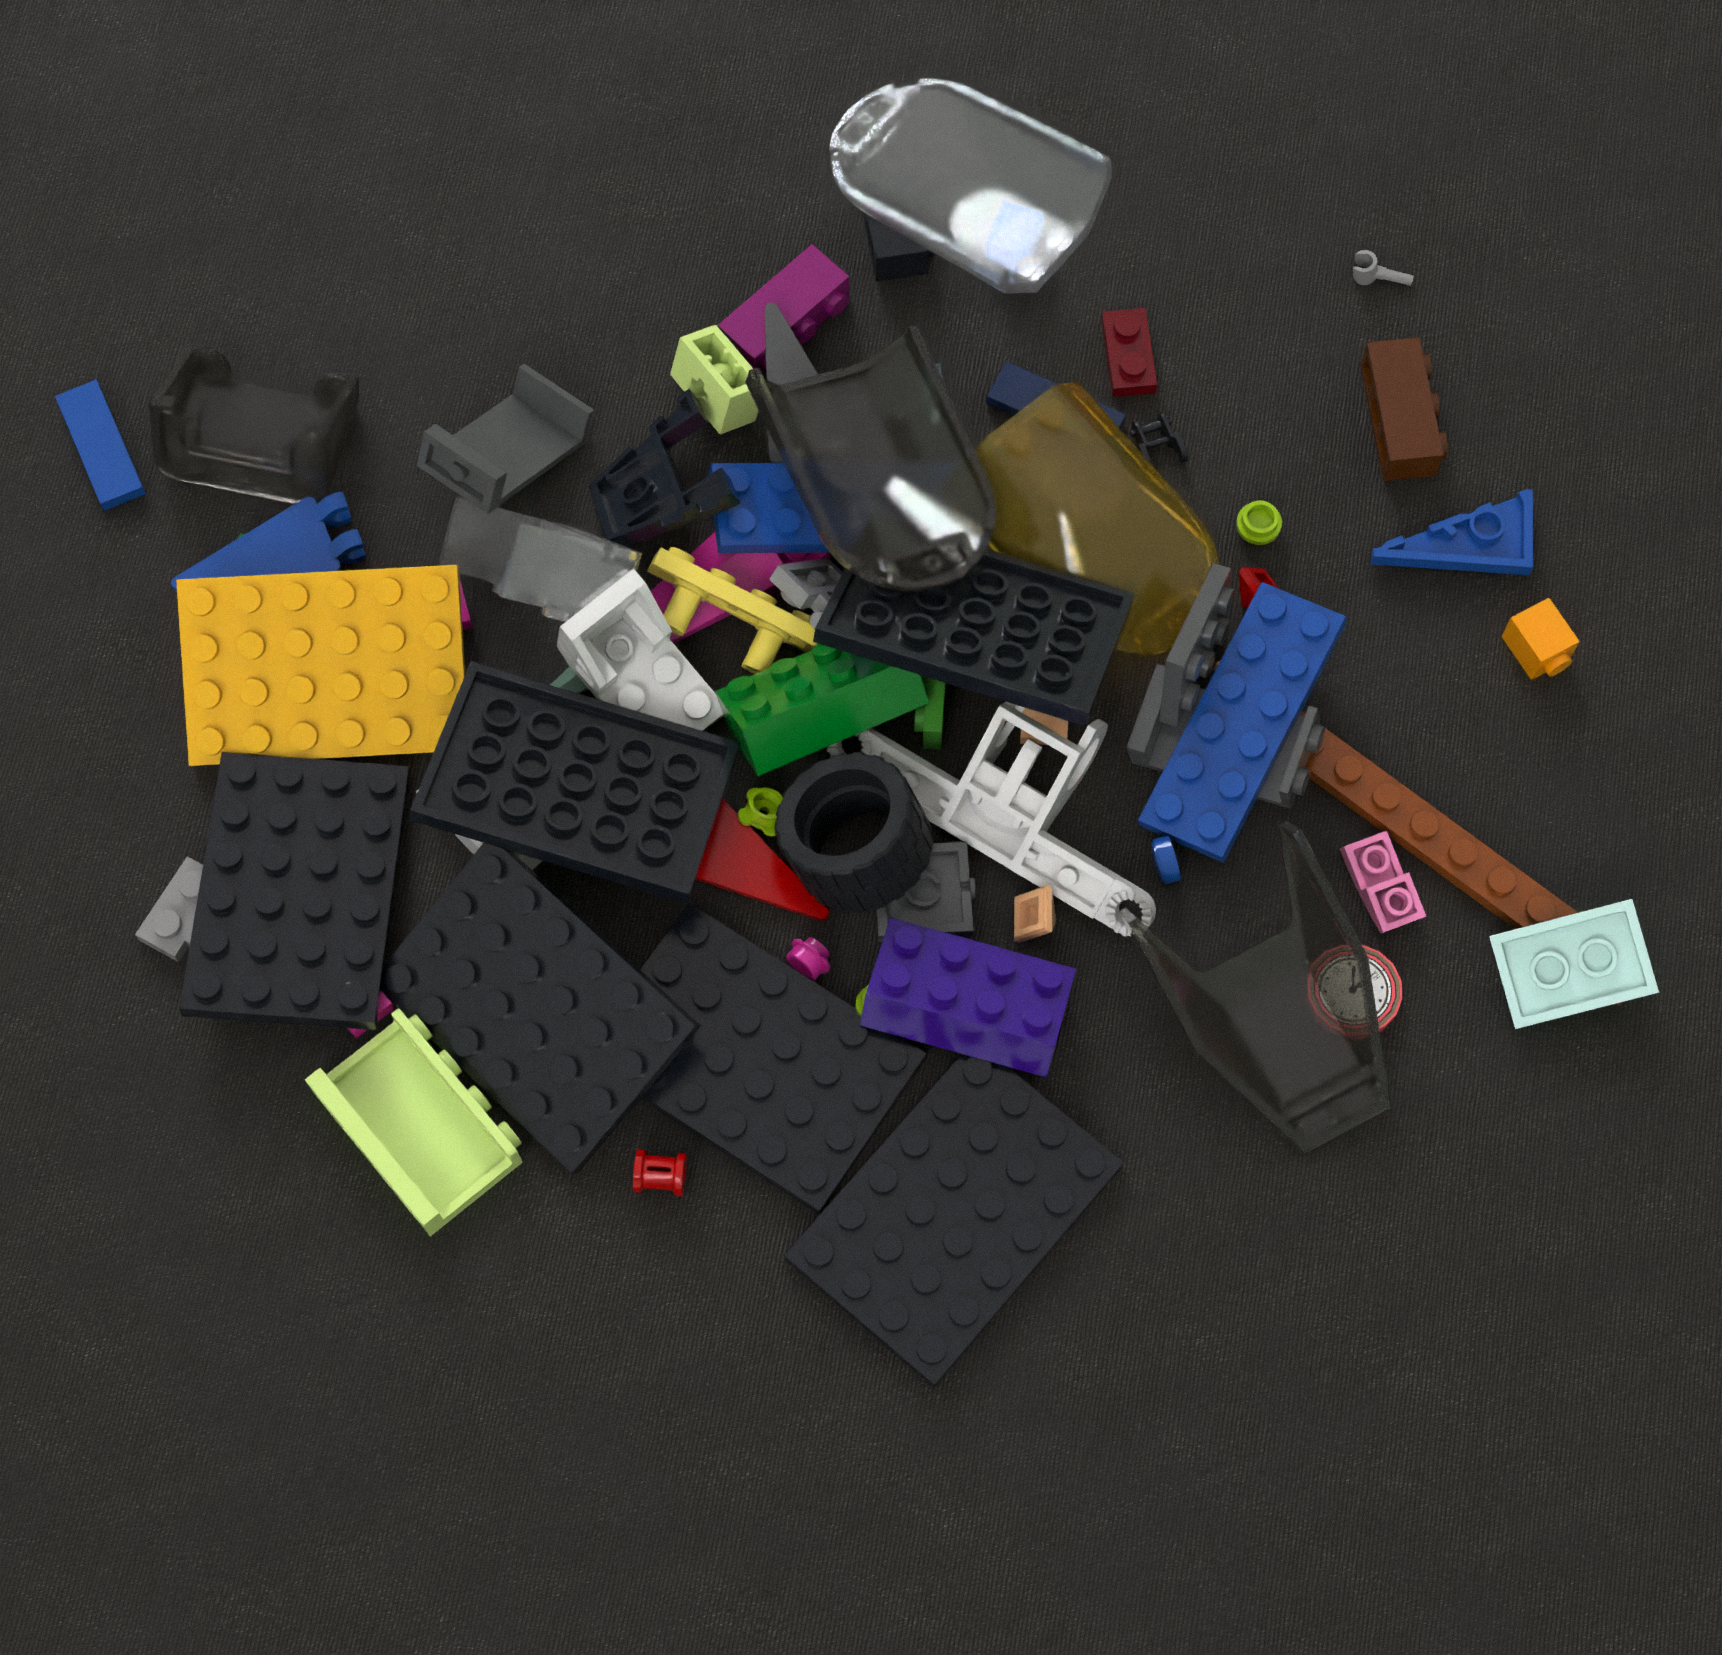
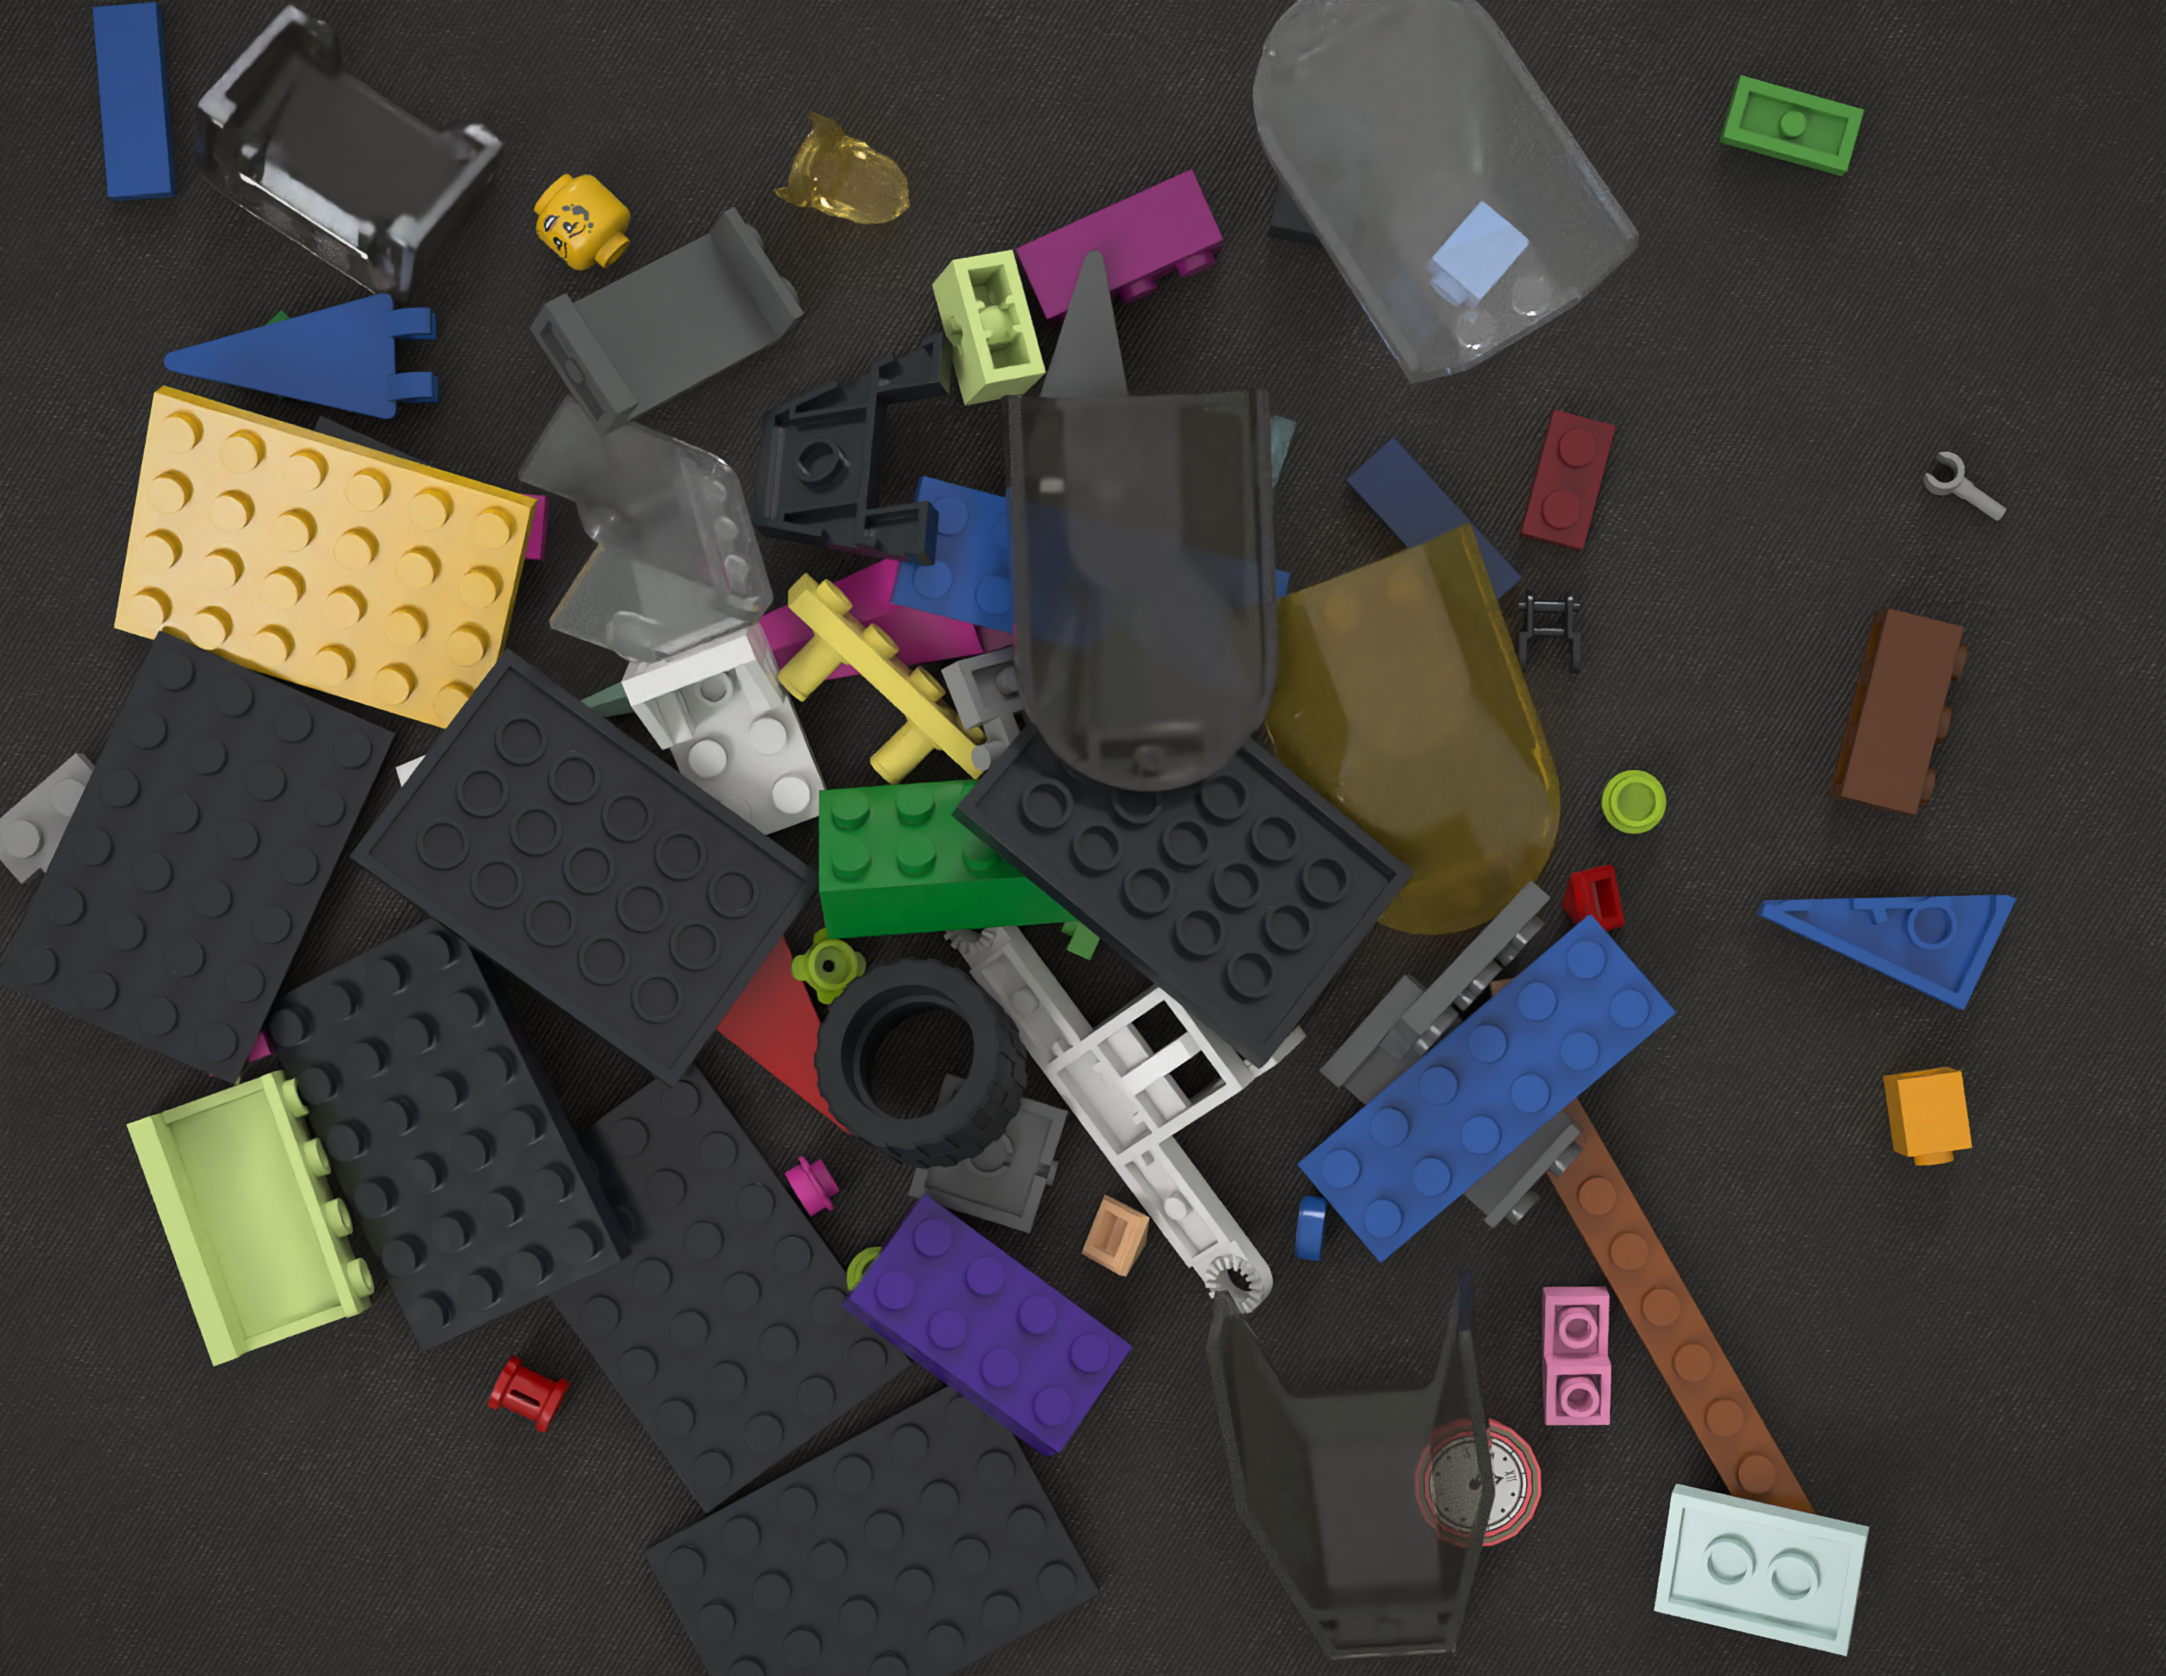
camera: 25 degrees right, 20 degrees up
(426, 404) = (582, 222): none -> yellow head
(589, 329) = (845, 177): none -> clear yellow piece
(1176, 108) = (1791, 125): none -> bright green plate

